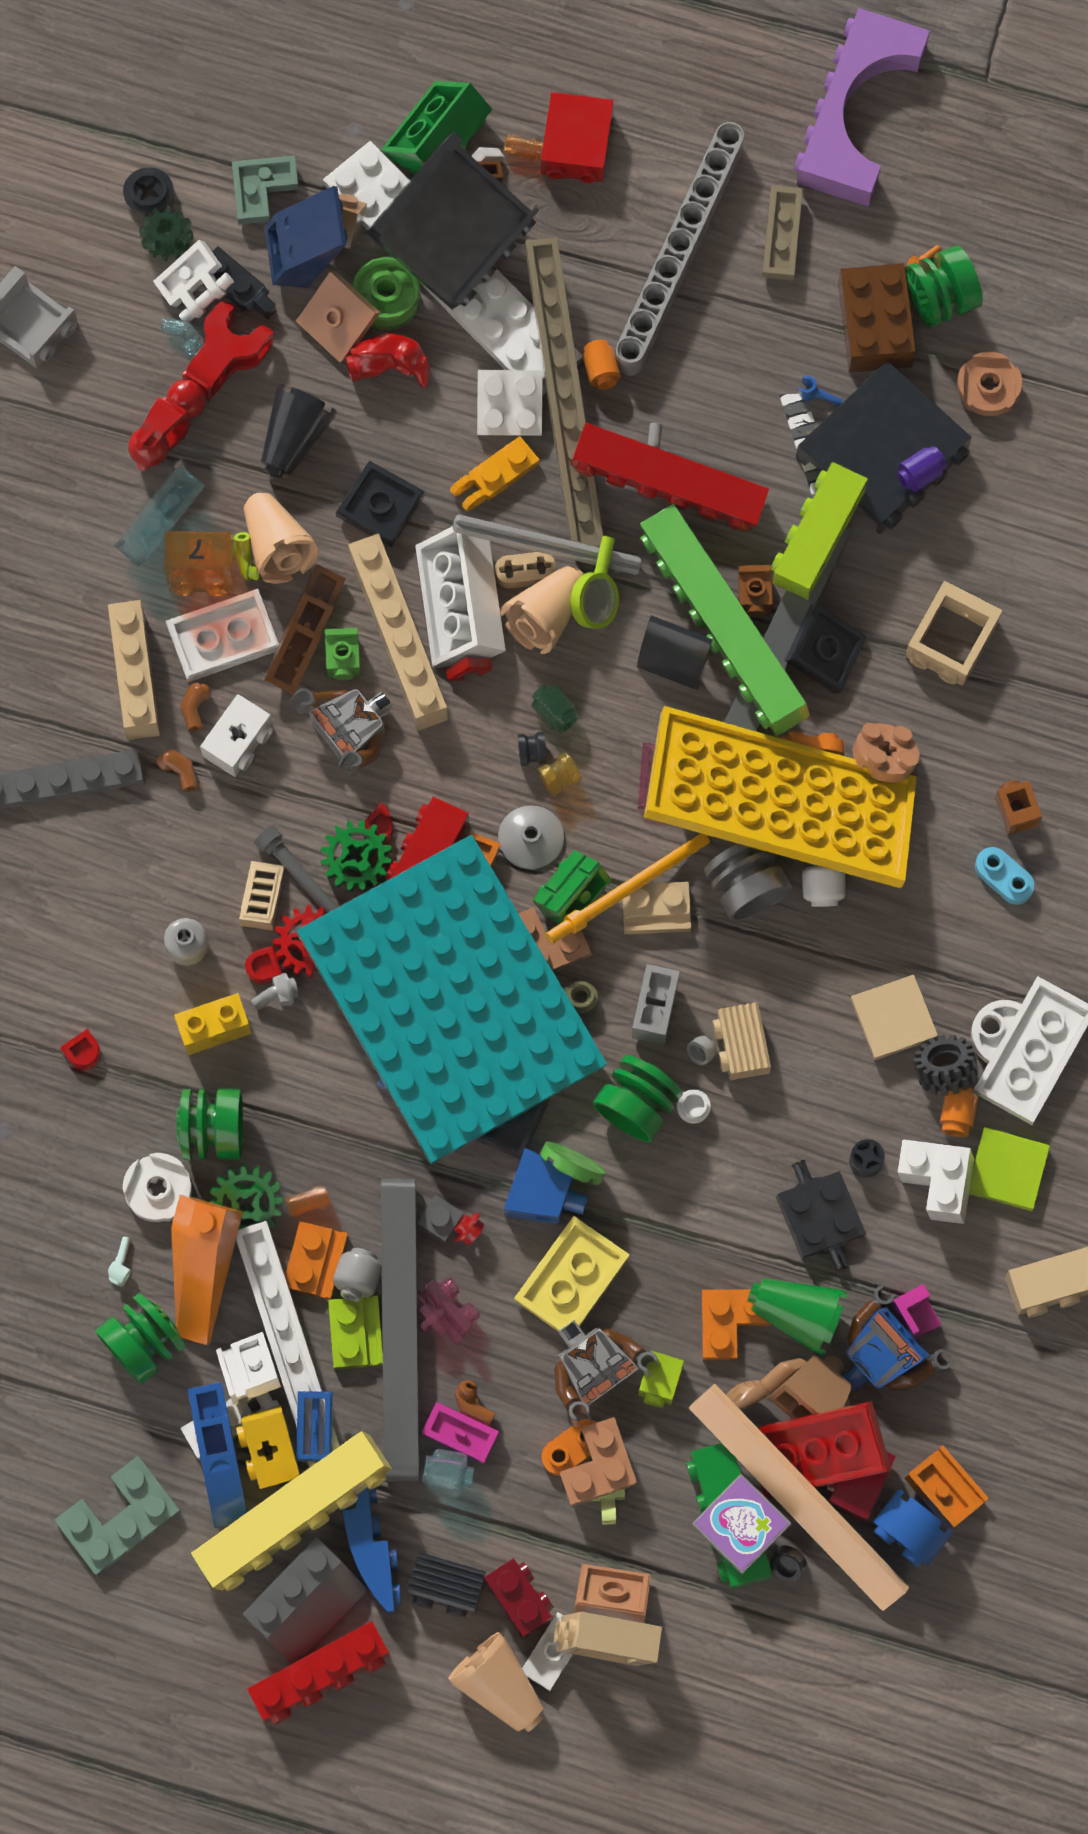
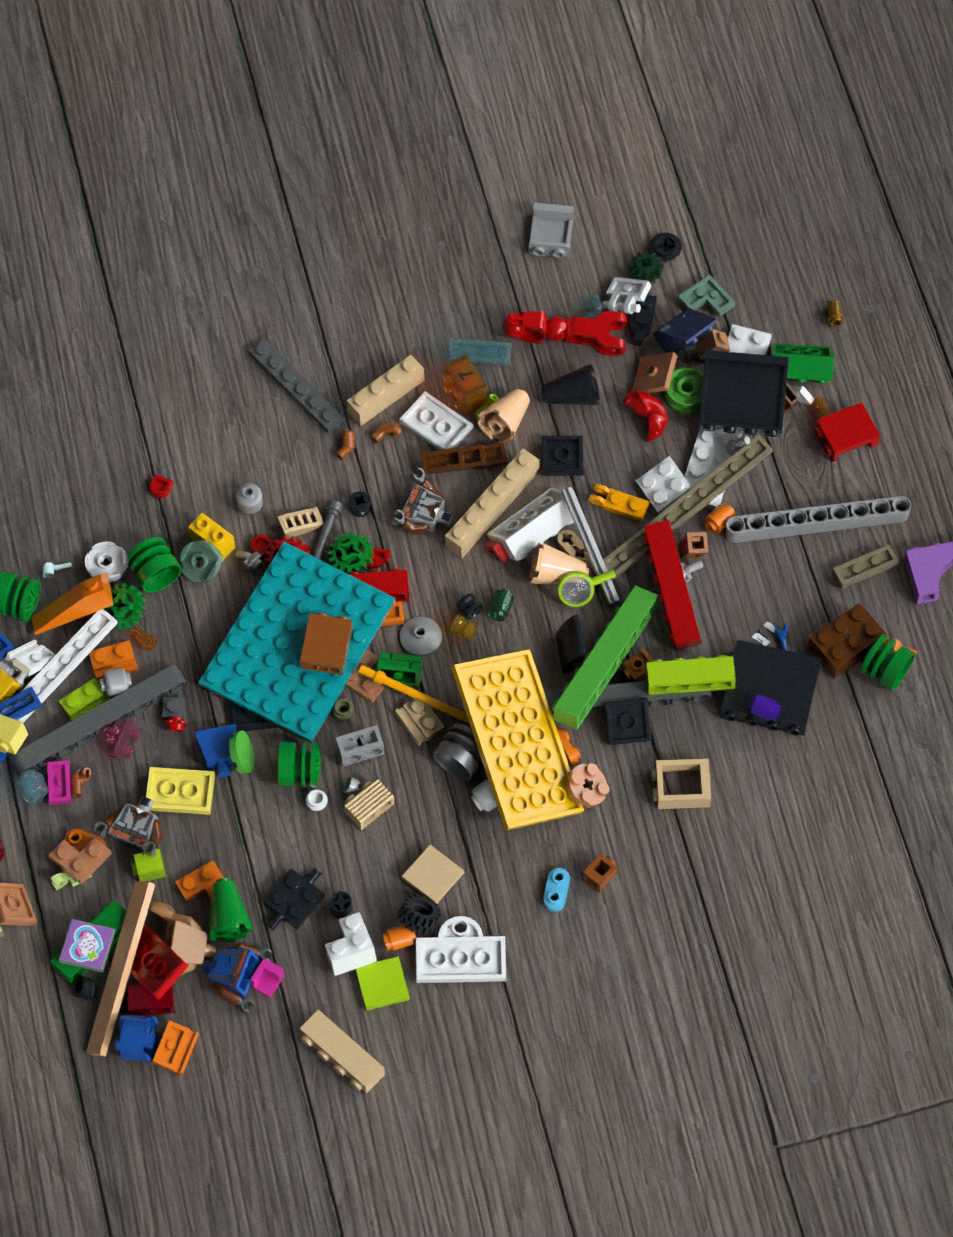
camera: 60 degrees right, 10 degrees down
(237, 719) = (373, 453): white brick -> none
(243, 1040) = (211, 558): none -> sand green plate
(287, 809) = (360, 509): none -> black wheel
(342, 640) = (468, 488): bright green brick -> none
(390, 47) = (835, 318): none -> pearl gold pin
(491, 959) = (326, 643): none -> dark orange brick
(516, 279) = (736, 444): none -> light grey plate
(627, 415) = (693, 545): none -> dark orange brick
(979, 399) = (847, 734): nougat plate -> none

